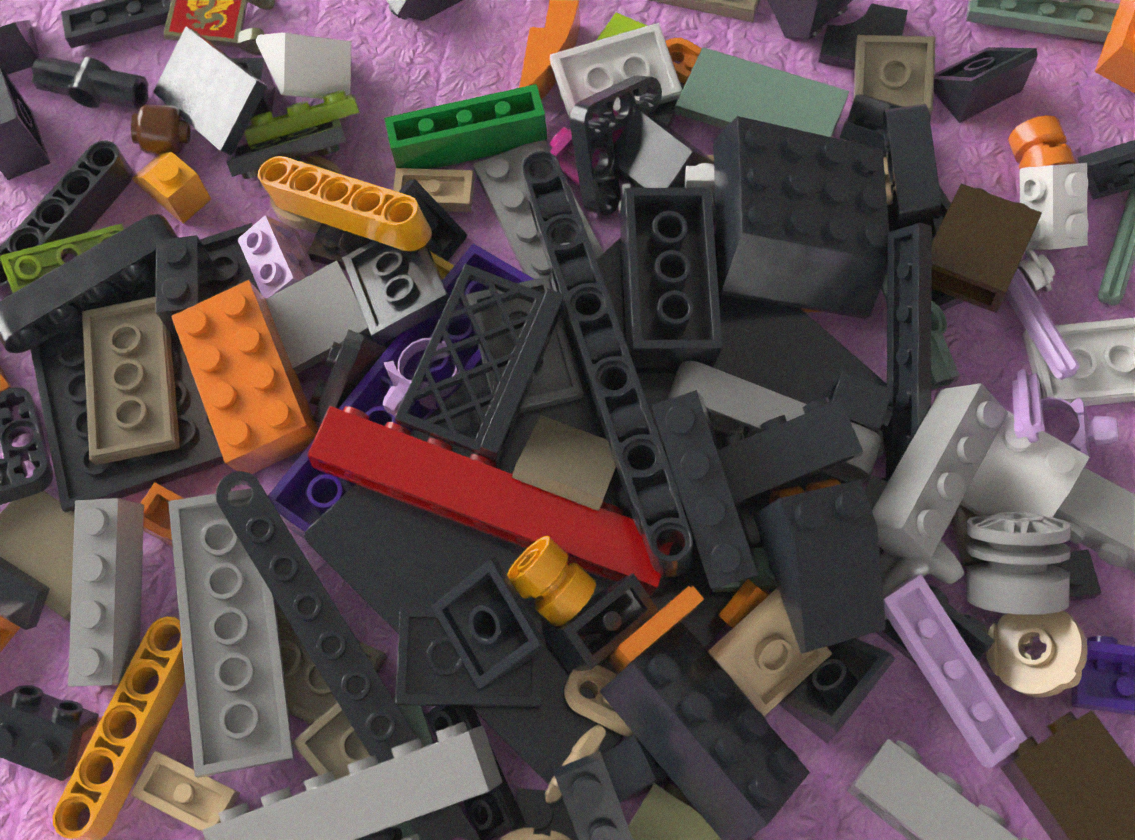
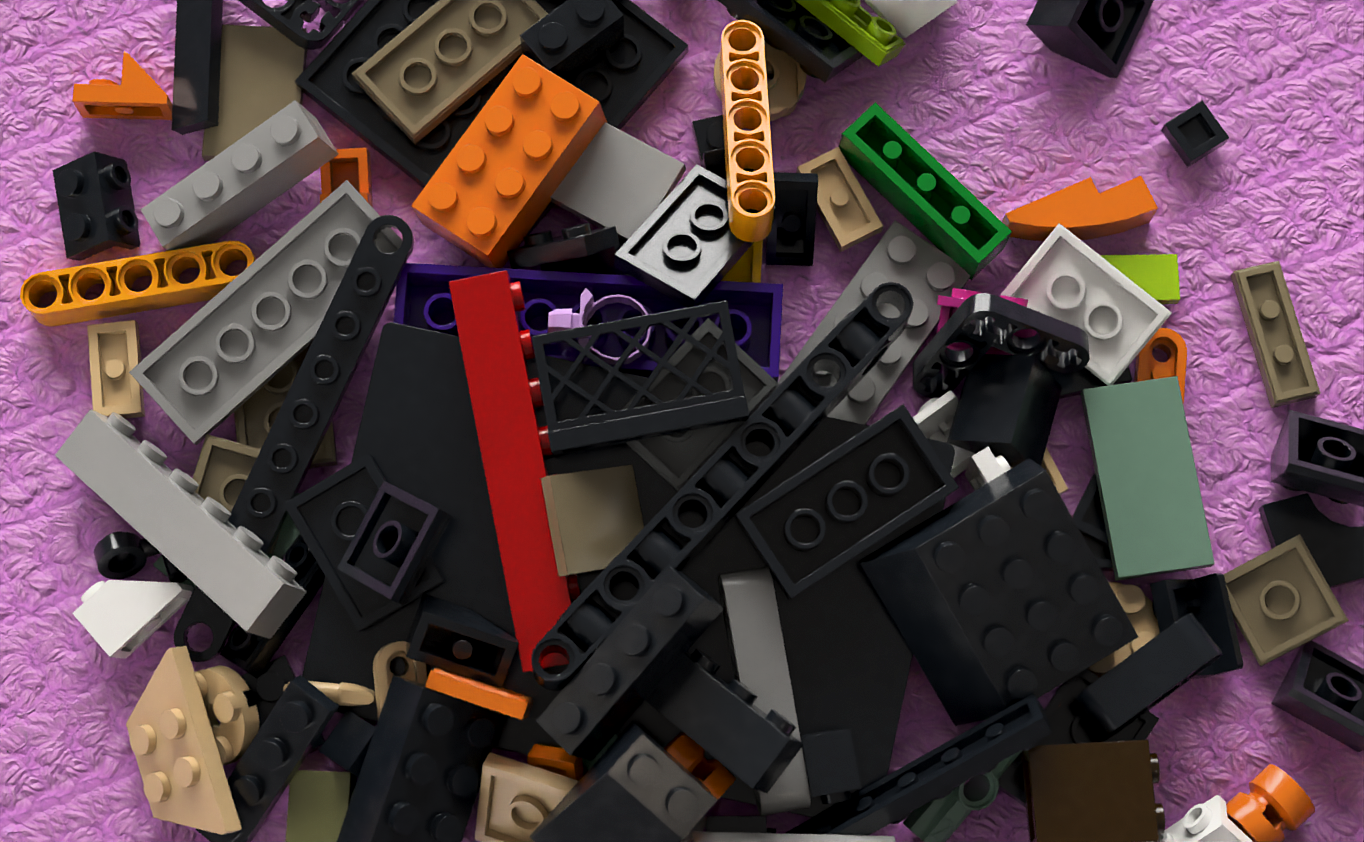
camera: 50 degrees right, 10 degrees up
(275, 255) = (664, 100): lavender bracket -> none
(557, 587) = (467, 567): light orange wheel -> none

